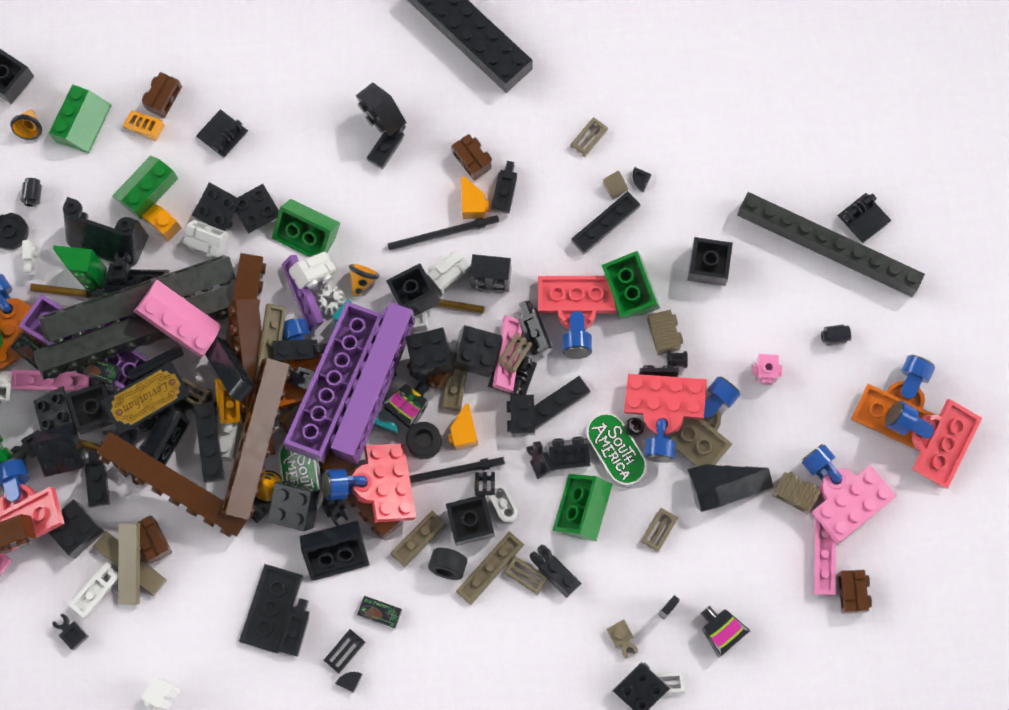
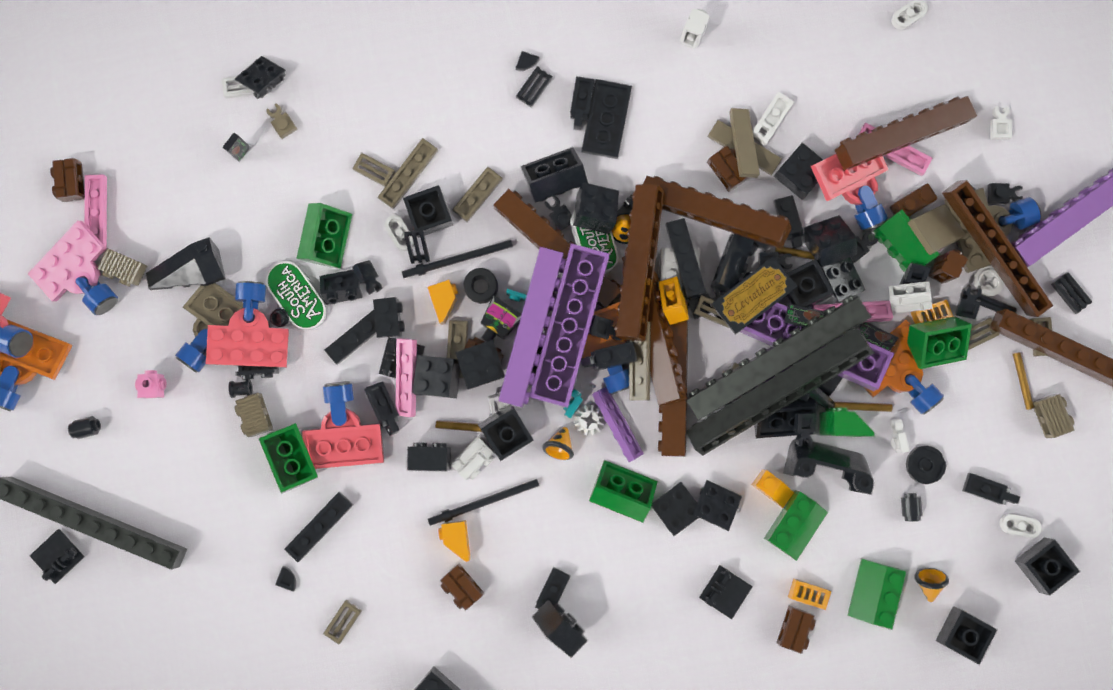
camera: 170 degrees right, 10 degrees up
(72, 633) = (786, 77): black plate -> none
(155, 363) = (750, 330): black axle -> none
(178, 319) = (734, 374): bright pink slope -> none
(205, 239) = (723, 471): white brick -> none
(229, 369) = (674, 323): black beam -> none
(312, 270) = (609, 445): white brick -> none
(379, 482) = (517, 235): coral plate -> none
(379, 612) = (506, 124): black tile -> none
(447, 563) = (445, 169): black tyre -> none
(504, 189) = (424, 554): black hinge -> none
(522, 342) = (396, 374): dark tan tile -> none
(555, 571) = (345, 173): black hinge -> none
(615, 184) = (311, 569): dark tan slope -> none
(651, 544) = (262, 218): dark tan tile -> none
(710, 261) = (209, 492): black brick -> none
(722, 630) = (188, 134): torso -> none

